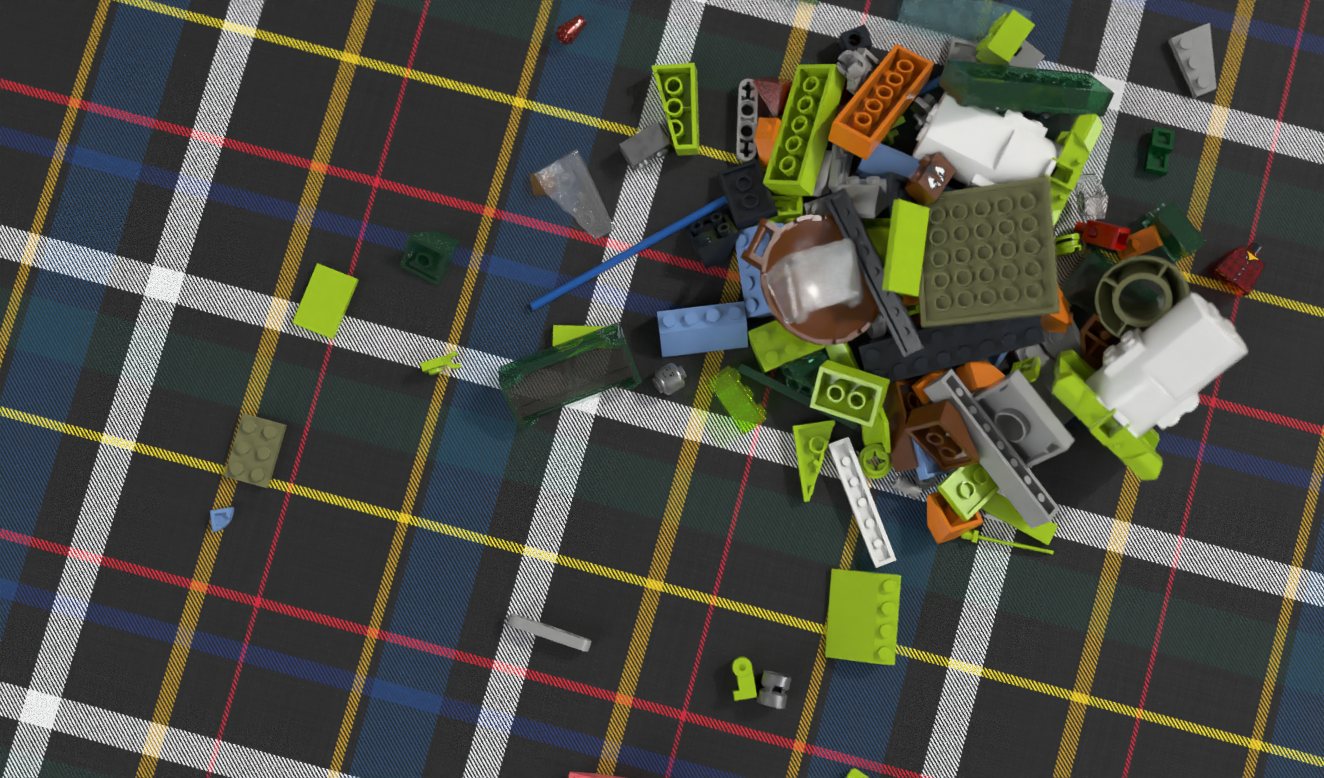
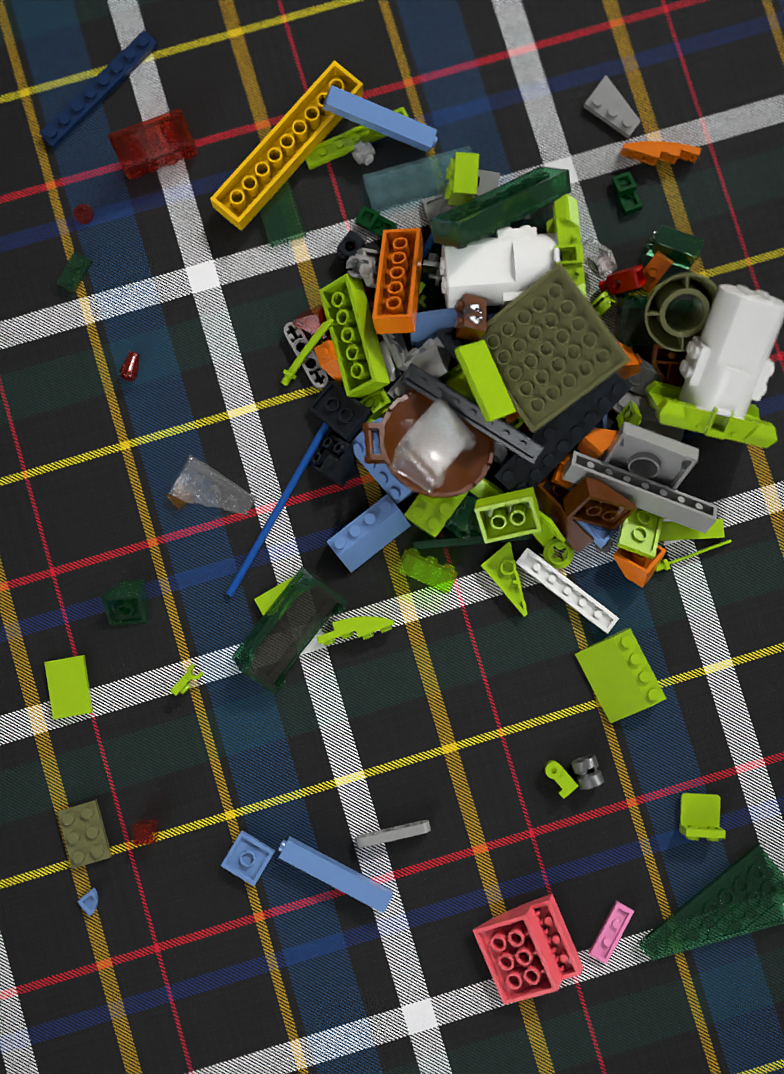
camera: 30 degrees left, 0 degrees up
(314, 484) = (145, 832): none -> clear red brick
(396, 569) = (247, 858): none -> medium blue plate
(470, 636) = (335, 874): none -> medium blue brick
(643, 415) = (362, 625): none -> lime slope
(645, 147) = (241, 421): flat silver brick -> none
(669, 378) = (366, 586): flat silver head -> none
(680, 102) = (246, 371): lime wedge -> none
(720, 129) = (290, 374): none -> lime sword
(892, 31) = (373, 222): none -> dark green slope
(907, 487) = (593, 558): light grey pin -> none
(1209, 124) = (651, 151): none -> orange slope
(1239, 269) = (739, 245): torso -> none

